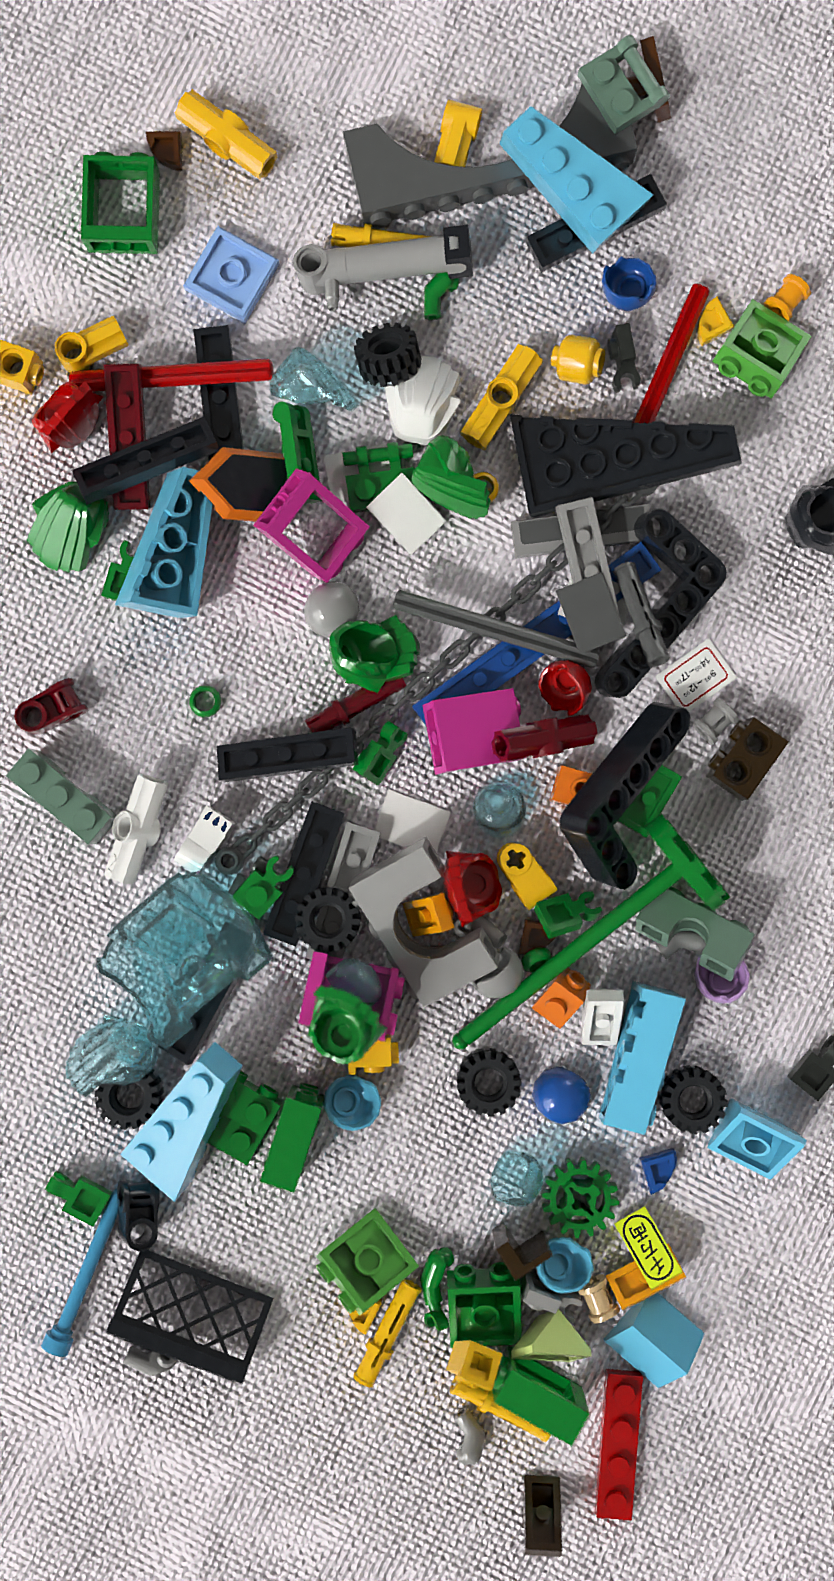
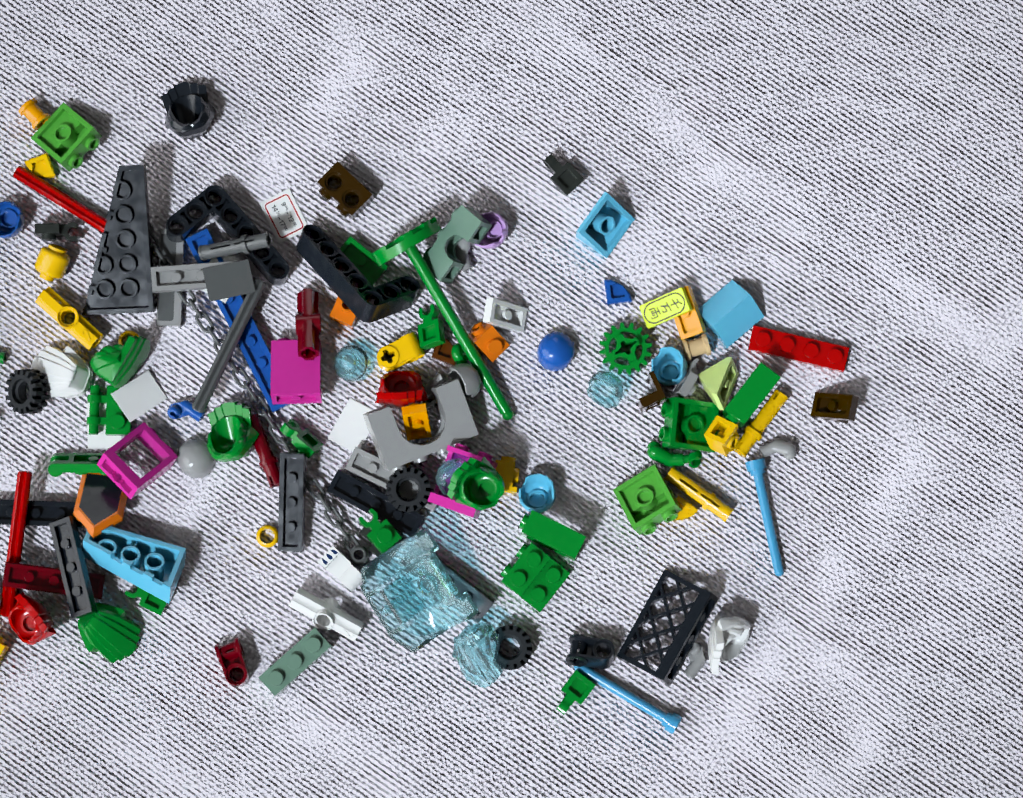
camera: 80 degrees left, 5 degrees down
(180, 1128) = (536, 612): wedge -> none
(182, 1403) = (726, 640): none -> white hair
(192, 701) = (240, 548): green piece -> none
(228, 718) = (259, 532): none -> yellow piece
(310, 381) = (37, 446): clear light blue hair -> none
(397, 578) = (183, 409): none -> blue arm
(435, 1411) = (756, 469): none -> dark azure piece
(488, 1103) = (527, 388): black tyre -> none
(565, 686) = (275, 305): red hair -> none
(641, 1057) = (535, 293): medium azure wedge -> none
(708, 1114) = (578, 249): black tyre -> none
(715, 721) = (316, 208): light grey bush -> none

